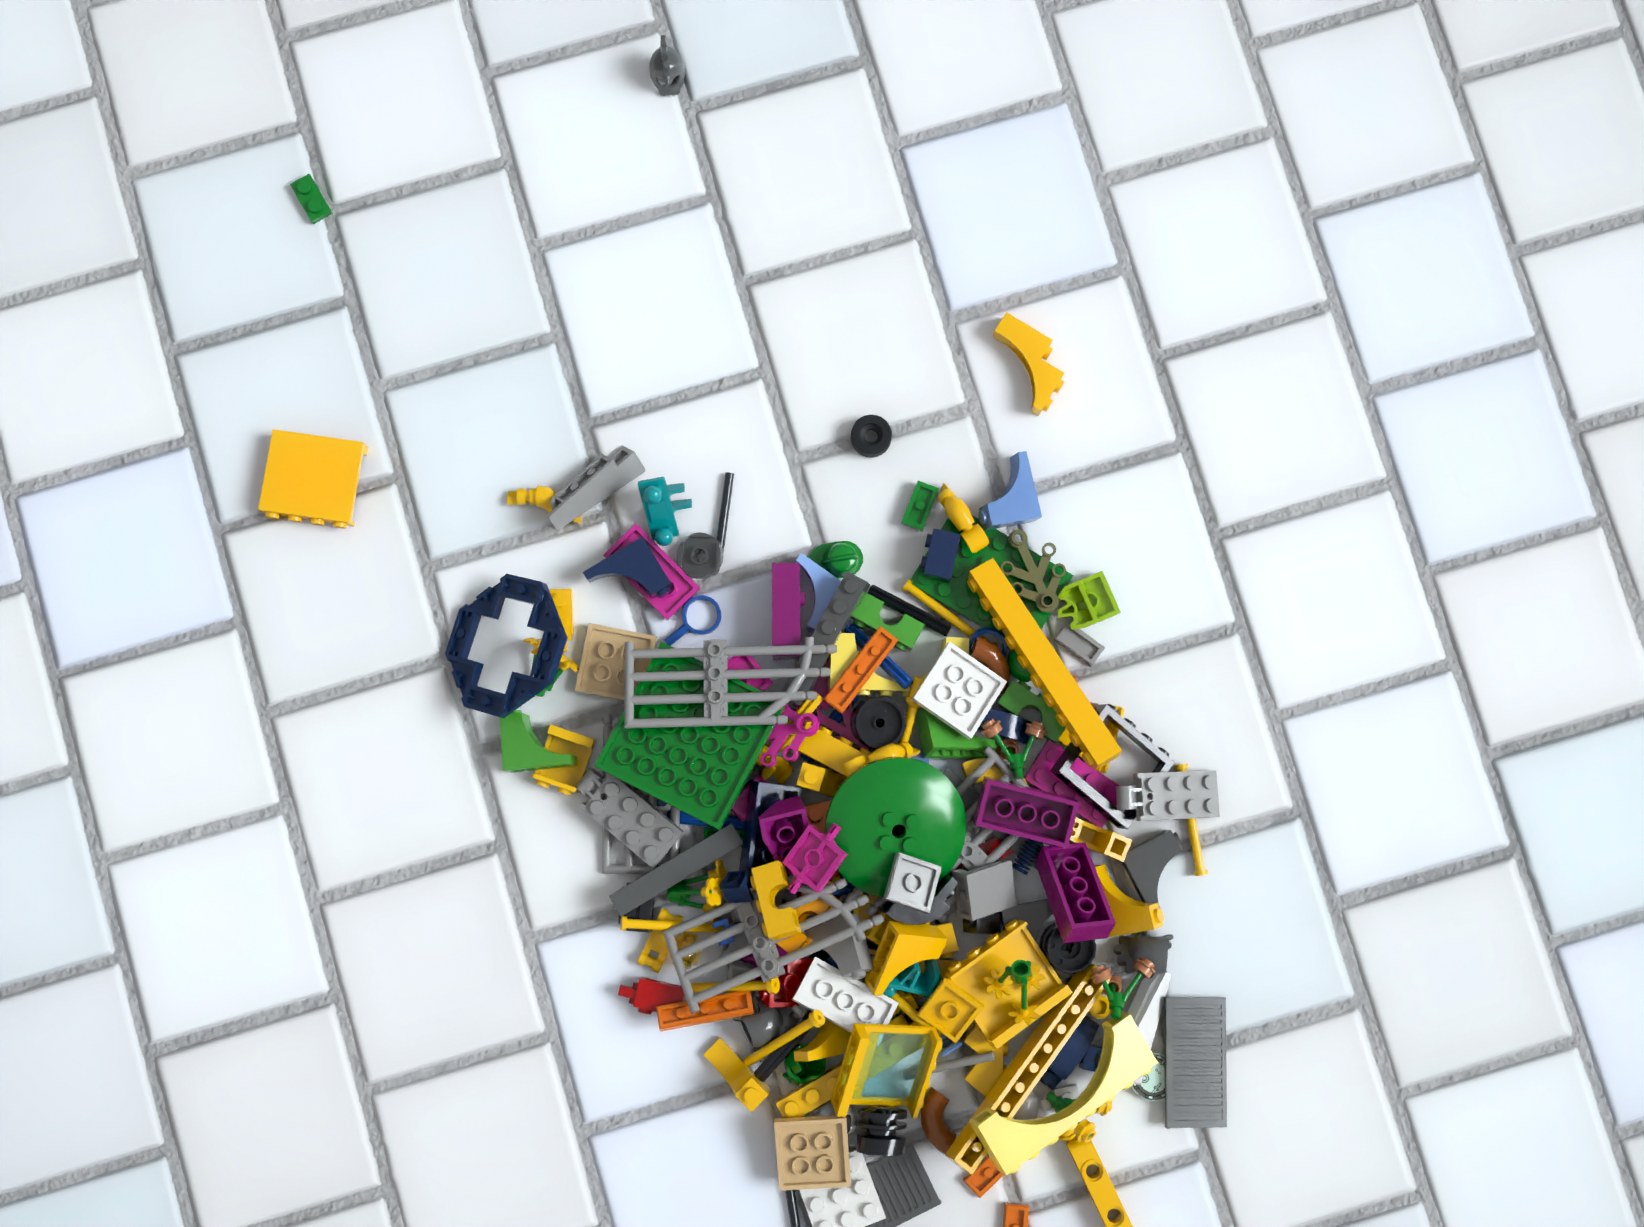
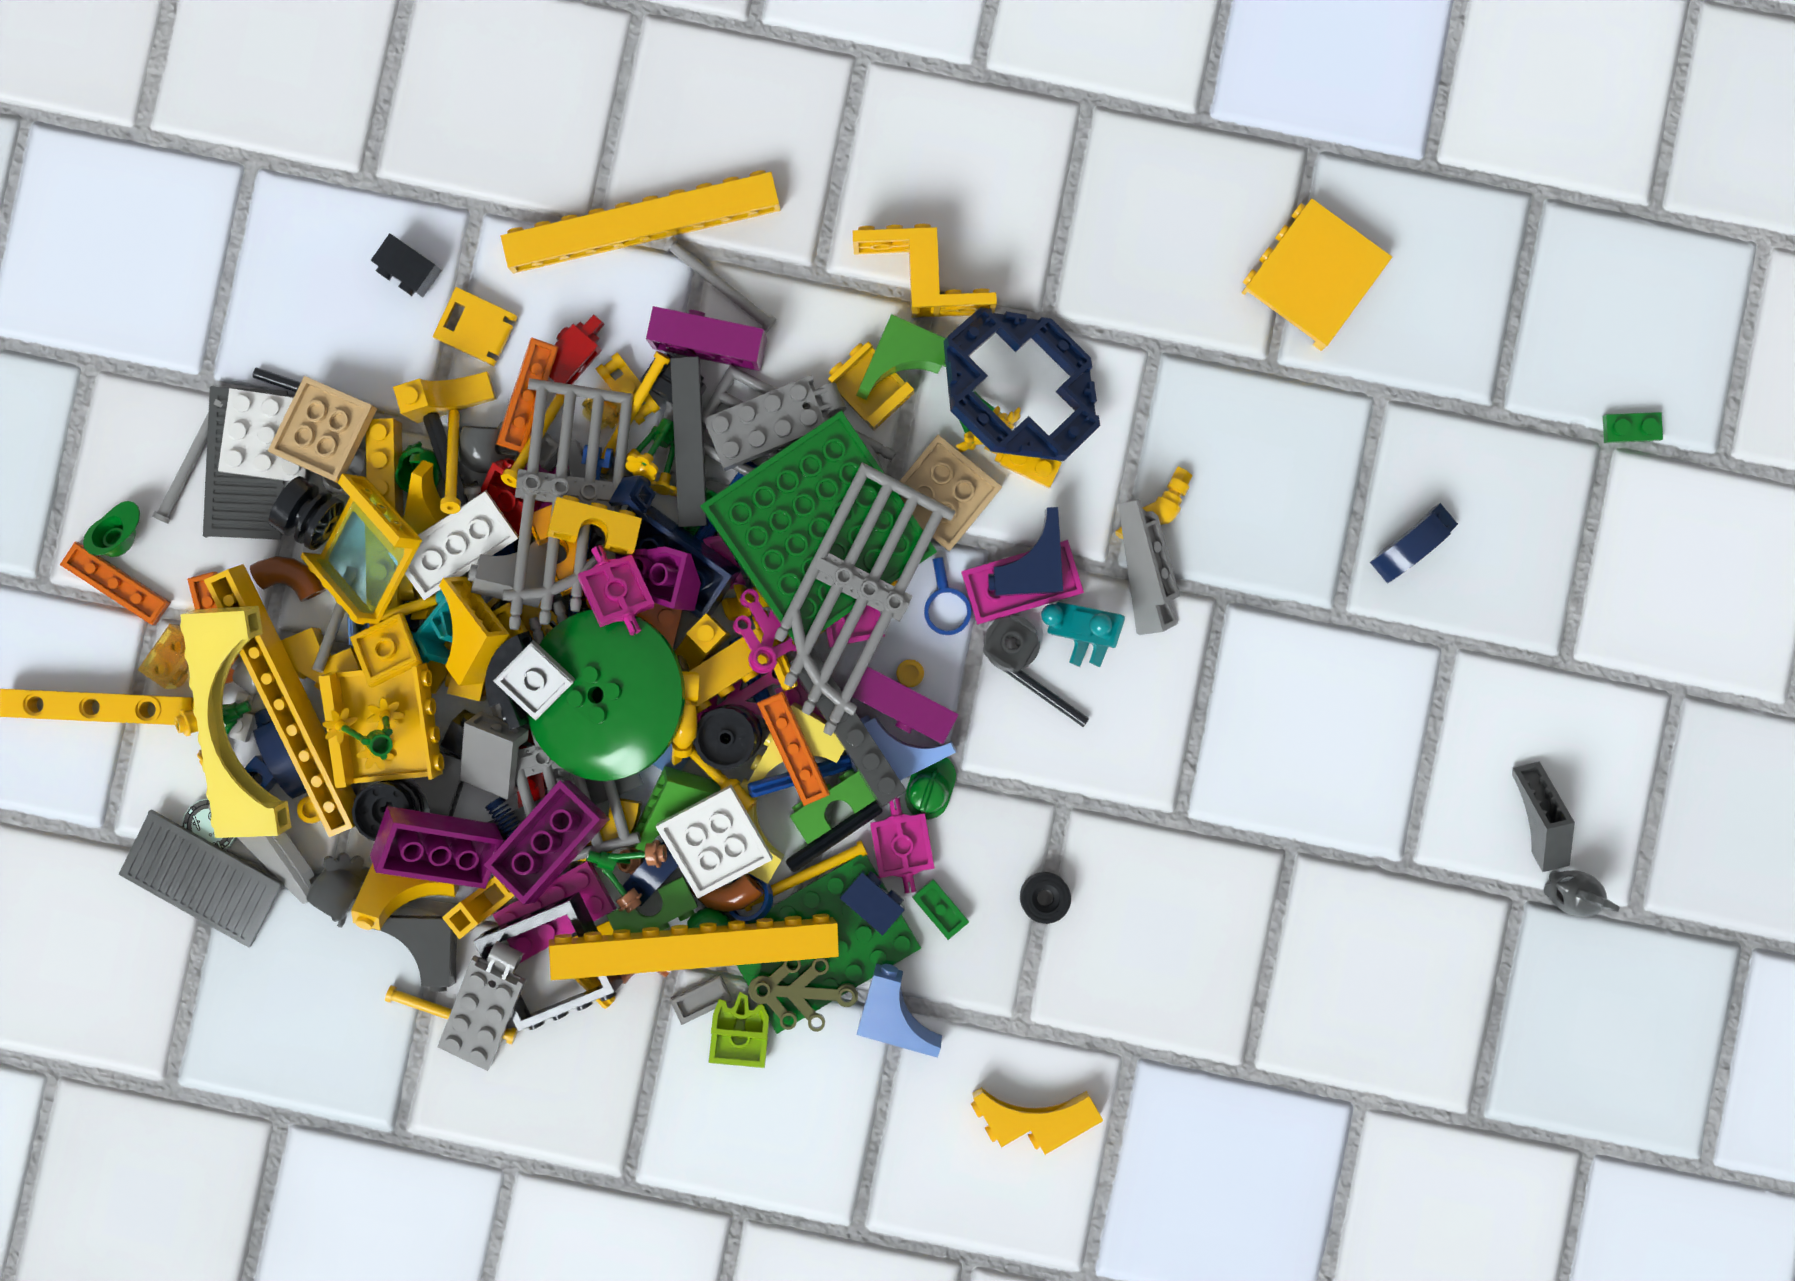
camera: 115 degrees right, 5 degrees up
(457, 765) = (924, 270): none -> yellow bracket
(476, 306) = (1414, 544): none -> dark blue arch
(529, 998) = (640, 222): none -> yellow brick
(545, 914) = (673, 246): none -> light grey bar
(591, 898) = (706, 338): none -> magenta brick
(623, 116) = (1547, 816): none -> dark grey arch
(655, 1159) = (405, 265): none -> black brick
(672, 1078) = (478, 329): none -> yellow container
(761, 618) = (910, 673): none -> yellow tile
(889, 557) = (902, 845): none -> dark pink plate
(962, 519) = (899, 946): yellow piece -> none
(1044, 1175) = (167, 659): none -> clear yellow brick
(1113, 988) = (324, 835): plant -> none

